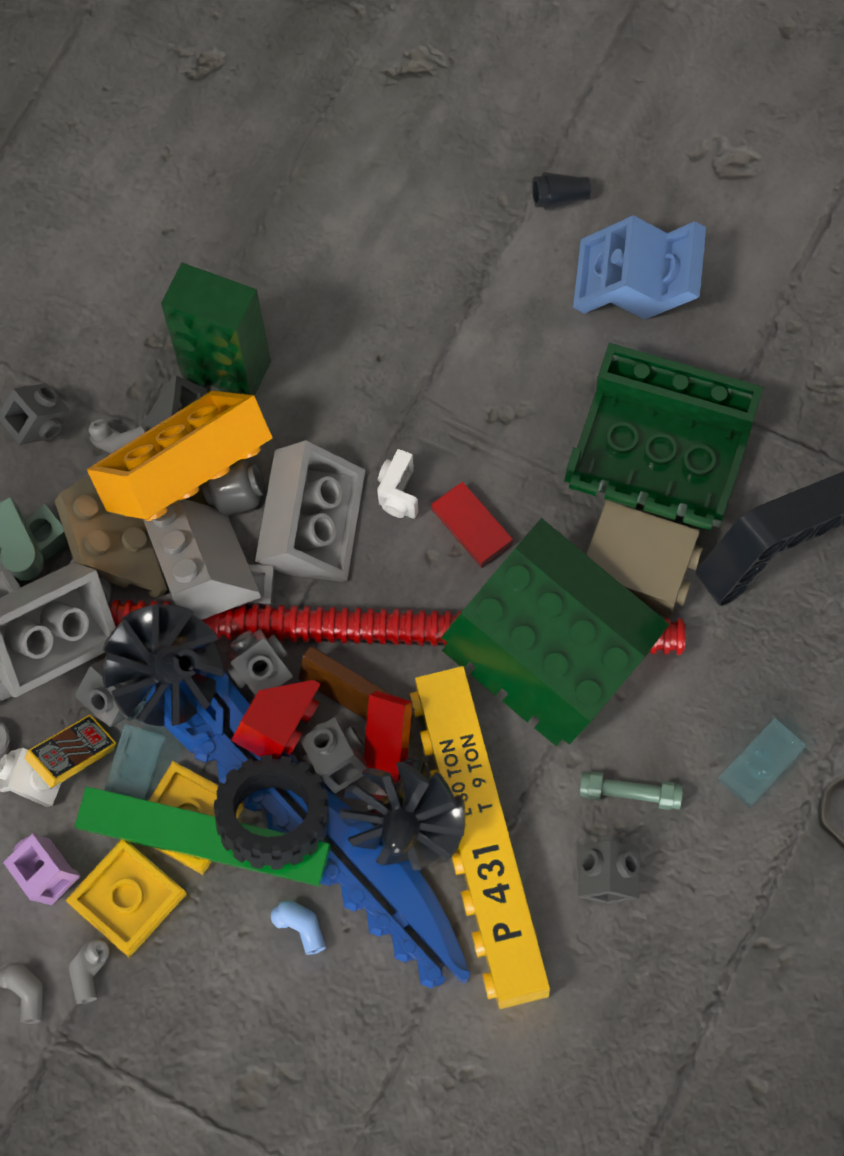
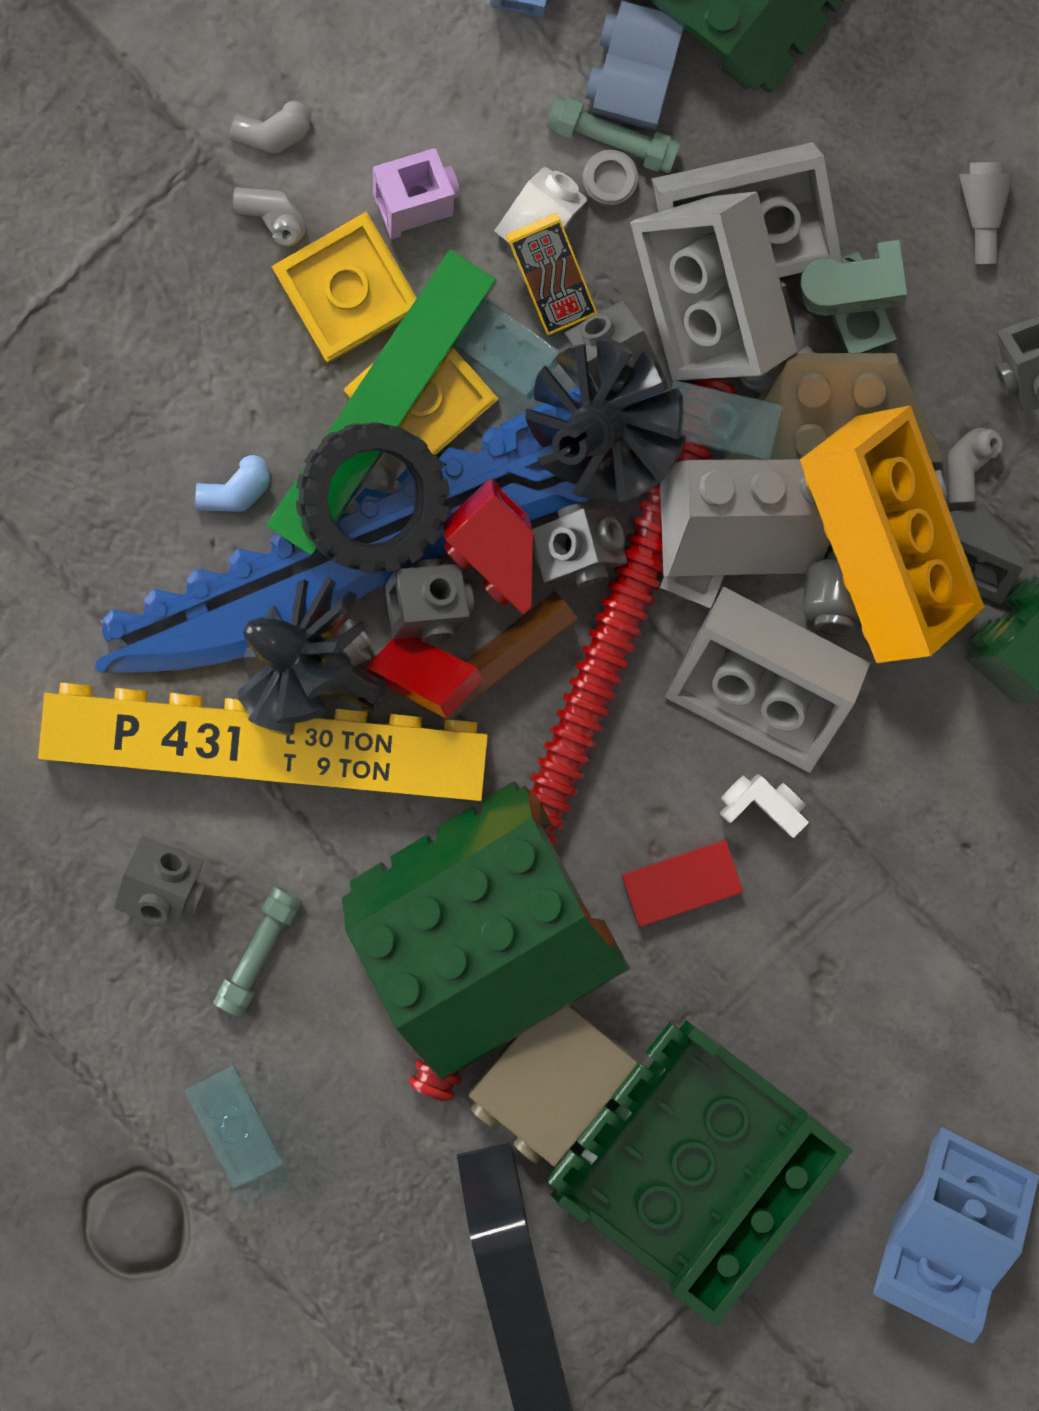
camera: 105 degrees right, 20 degrees up
(136, 582) = (728, 421): none -> clear light blue plate

